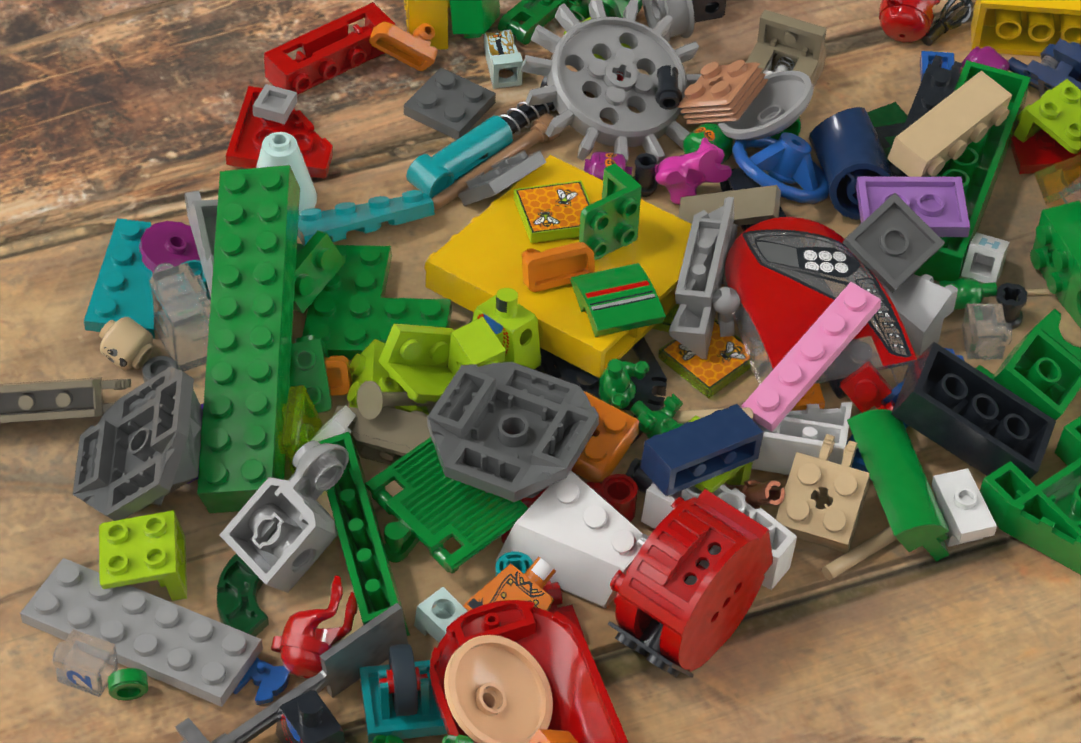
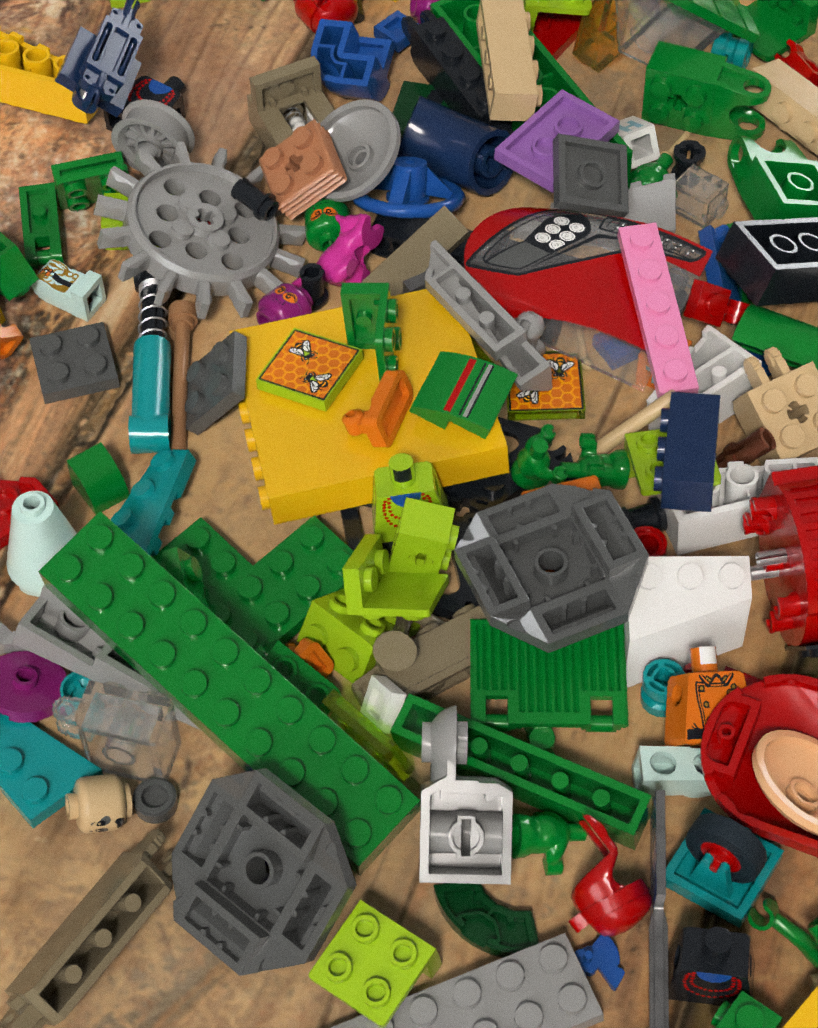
camera: 45 degrees left, 5 degrees up
(318, 577) = (544, 834): none -> green piece
(366, 175) = (97, 478): none -> green brick
(866, 59) = (350, 63): none -> blue brick

